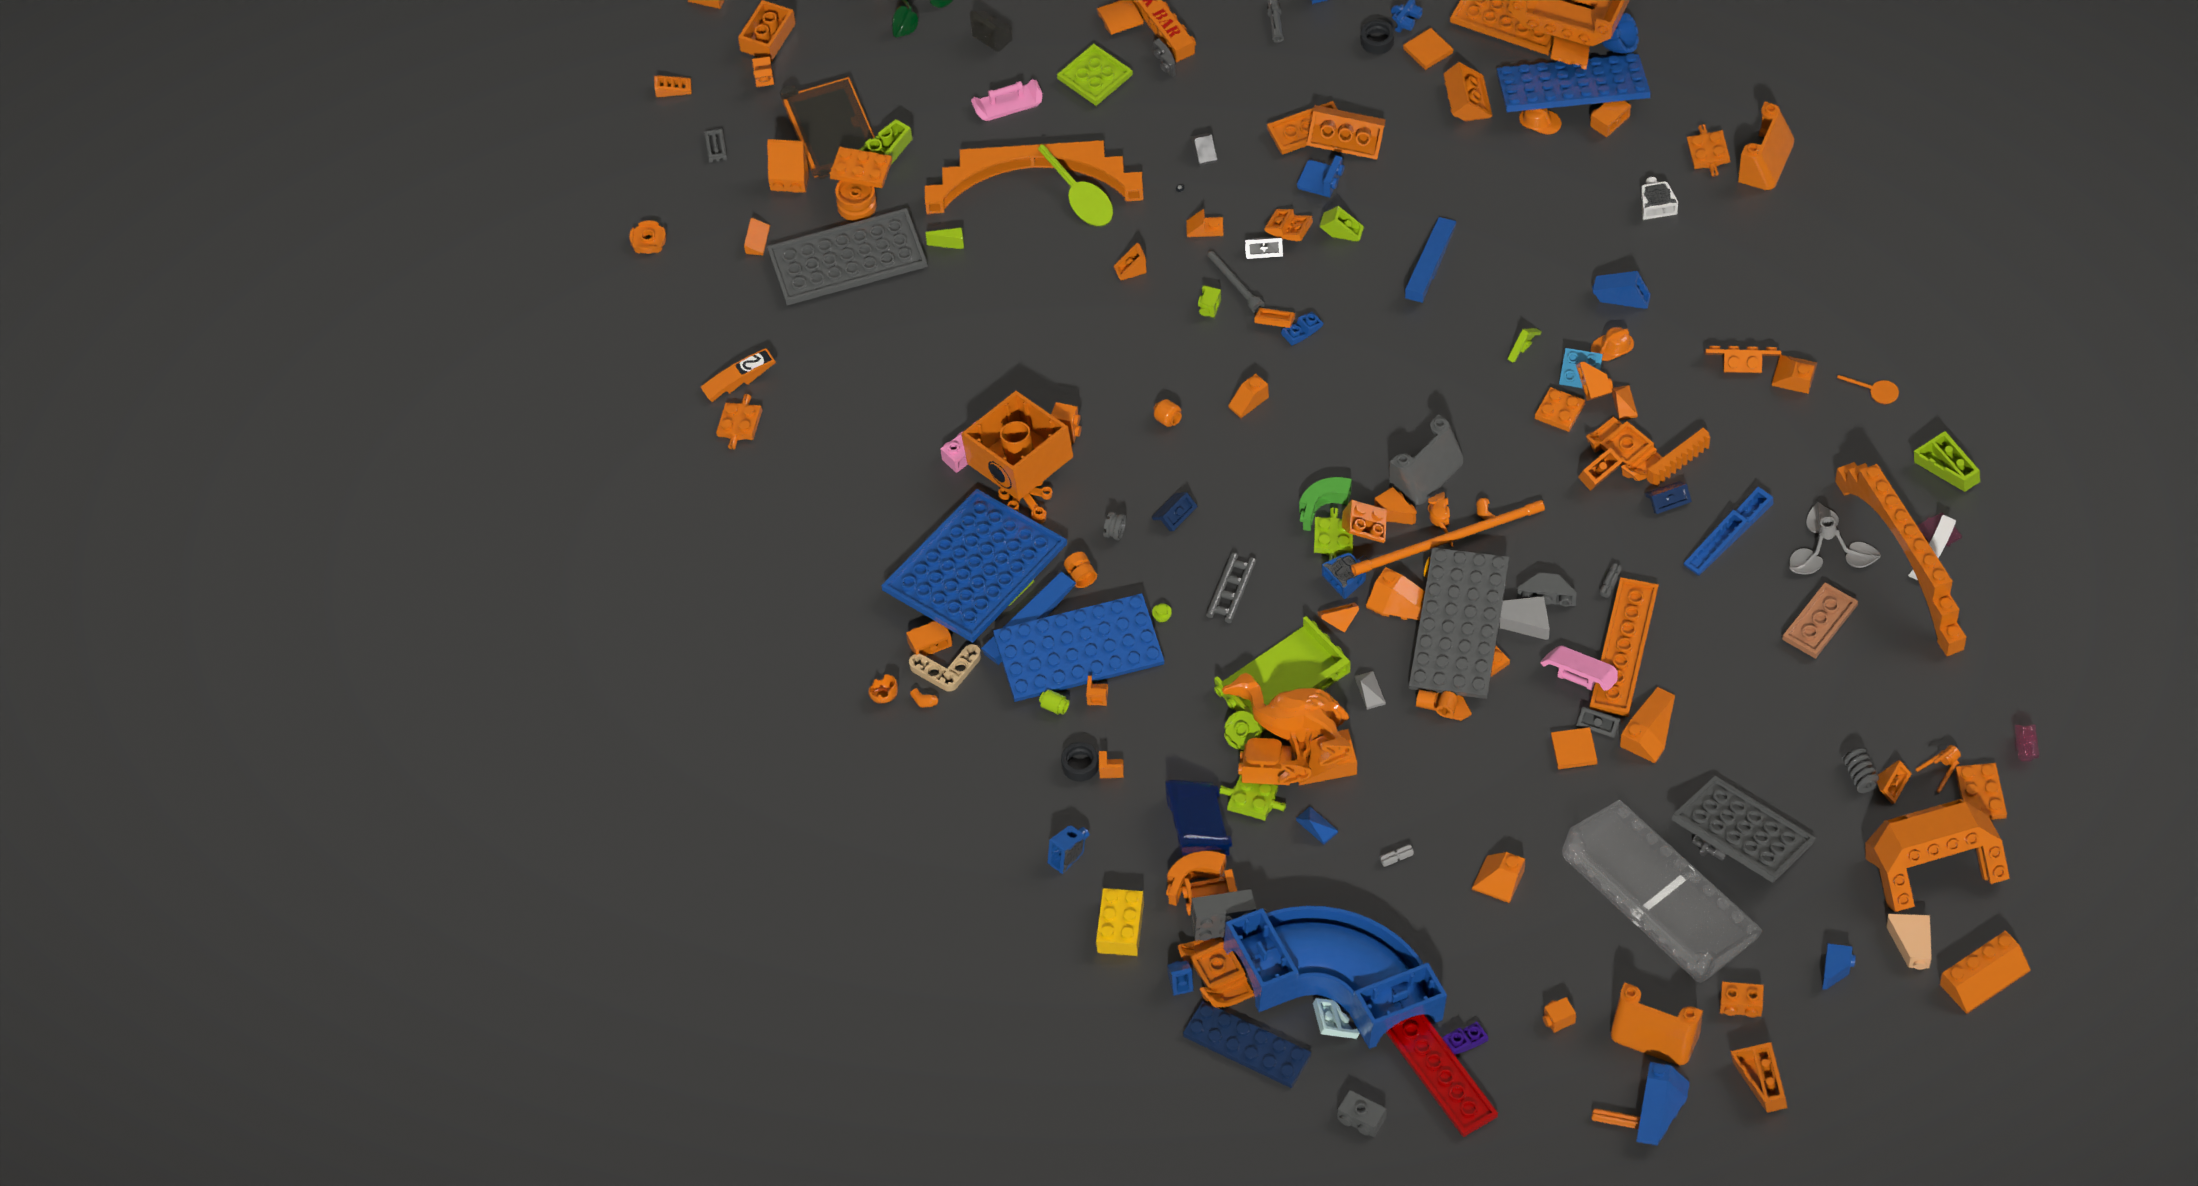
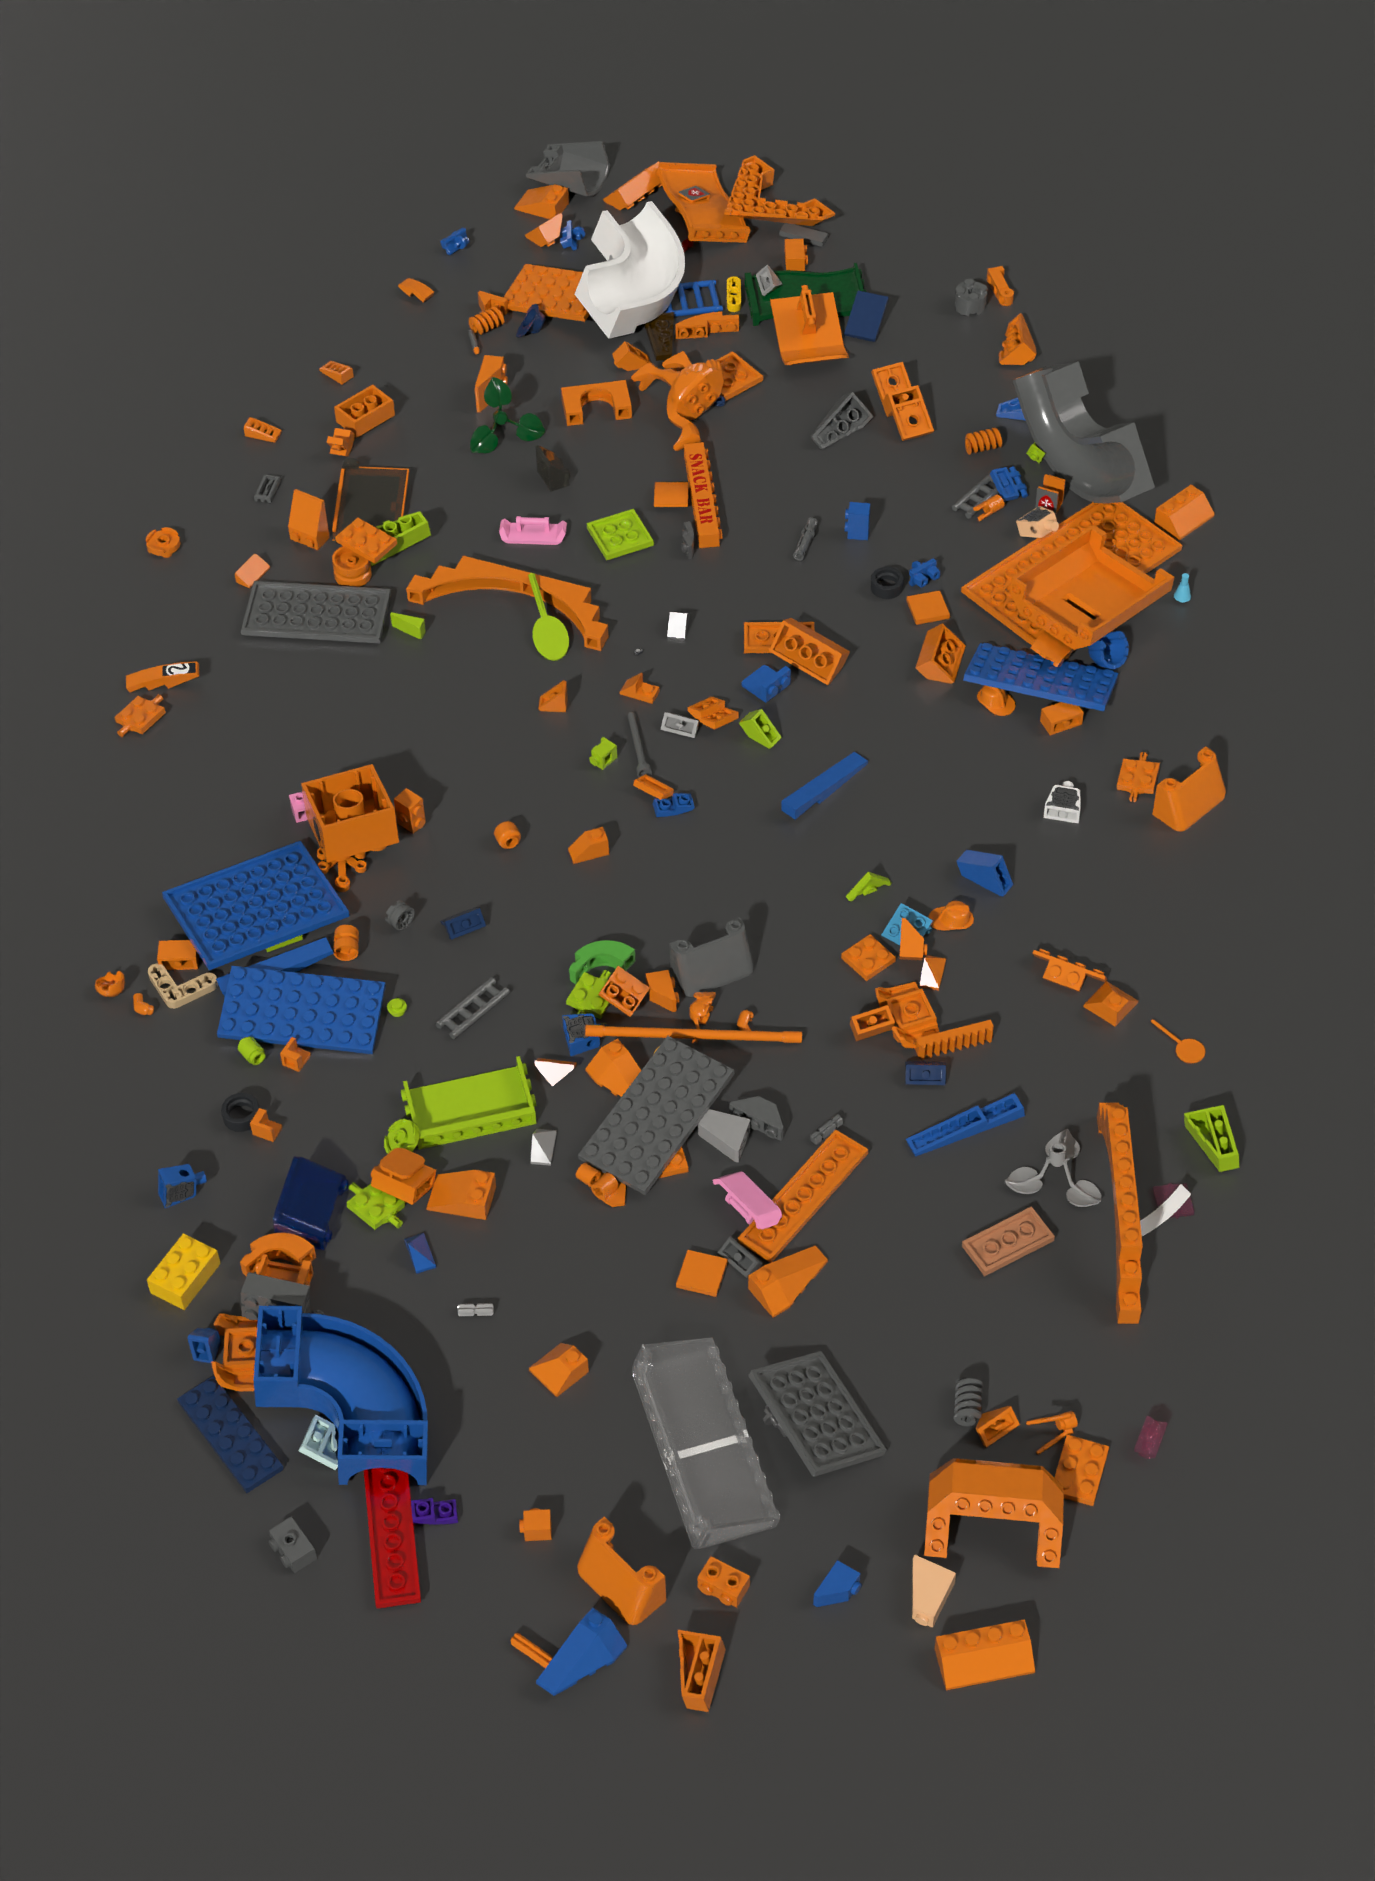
camera: 20 degrees right, 5 degrees down
(1297, 718) = (453, 1145): orange animal -> none

